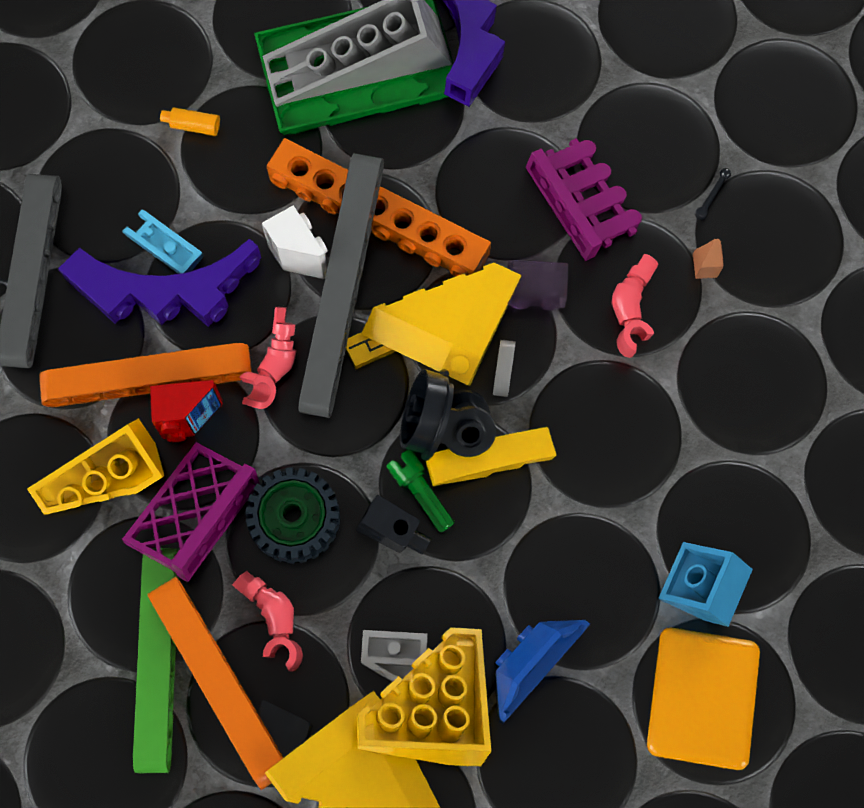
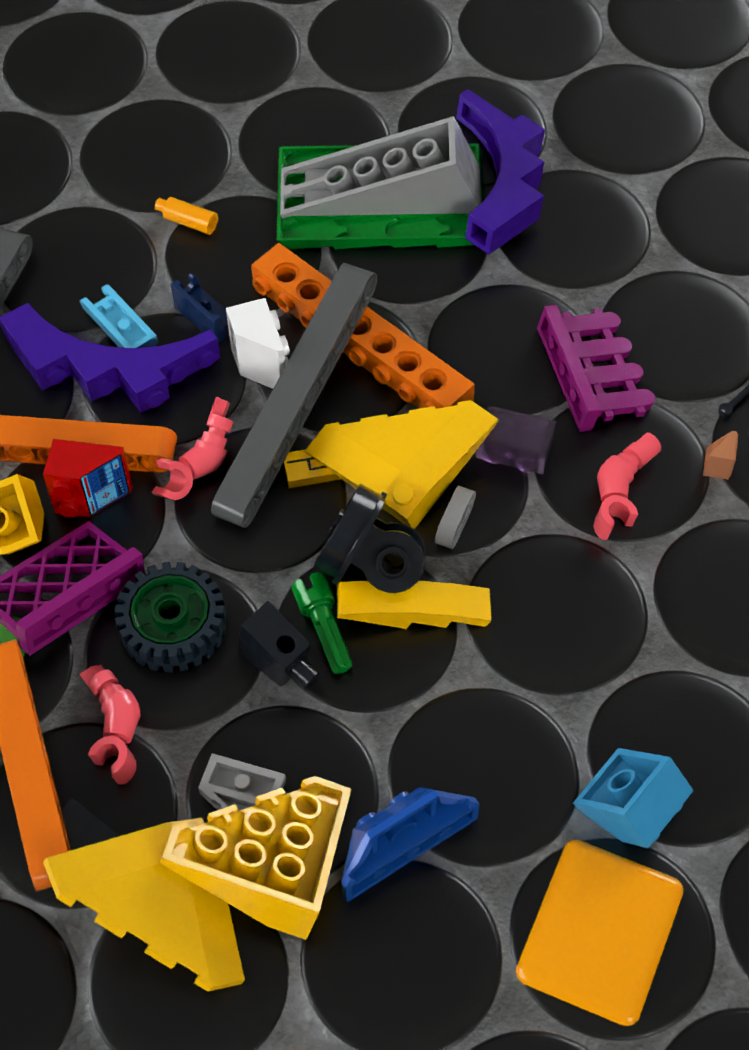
camera: 15 degrees right, 15 degrees down
(234, 215) = (200, 307): none -> dark blue hinge

